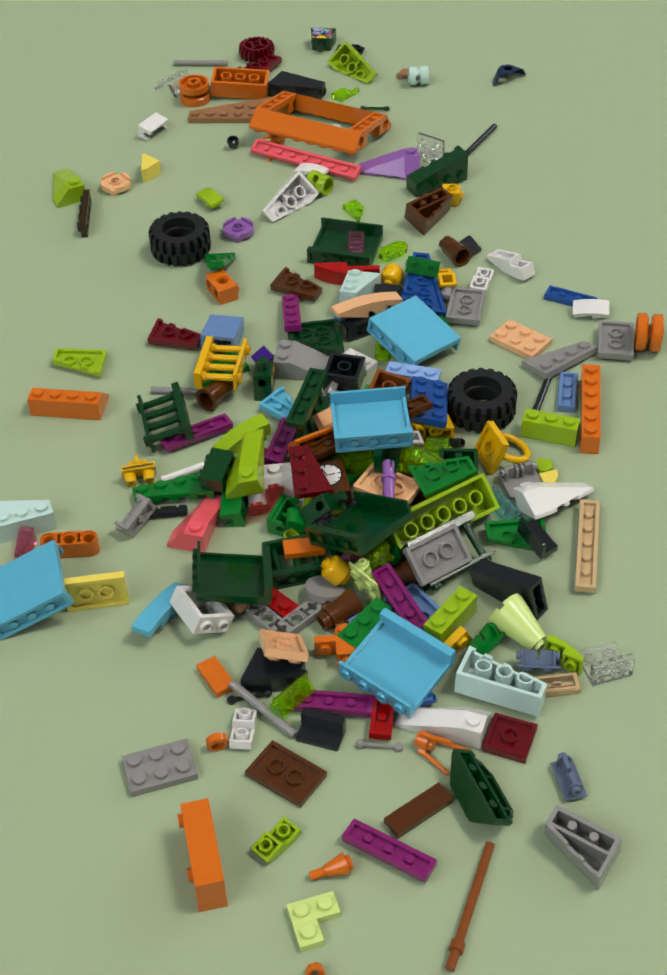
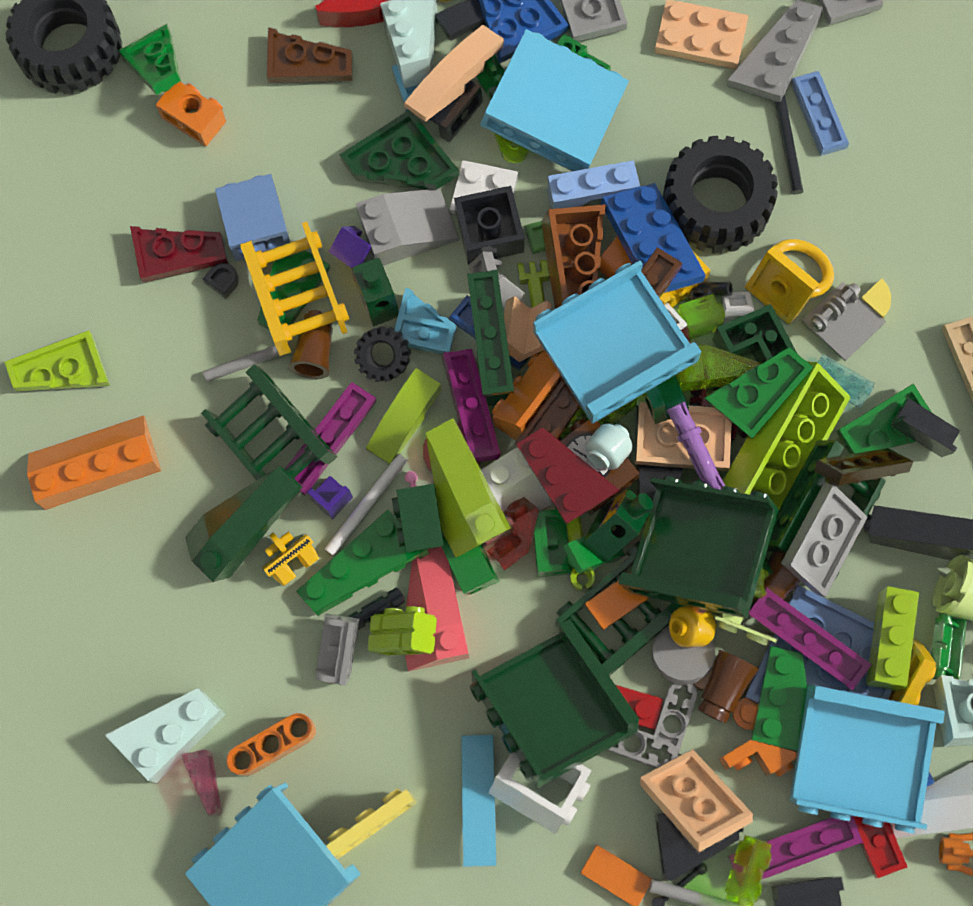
camera: 25 degrees left, 30 degrees up
(118, 448) = (236, 526): none -> dark green wedge
(173, 517) = (402, 632): none -> lime brick
(180, 457) = (330, 497): none -> dark purple panel
(189, 355) = (222, 279): none -> black tile
(243, 399) = (366, 361): none -> black tyre
(291, 313) = (335, 127): magenta plate -> none
(339, 467) = (608, 447): none -> light aqua head
(398, 747) = (917, 872): light grey hinge -> none
(476, 529) = (862, 466): none -> dark brown plate
(543, 498) = (903, 343): white wedge -> none
(544, 465) = (859, 274): lime tile -> none
(550, 427) = (837, 202): lime brick -> none
(590, 409) = (894, 179): orange arch -> none

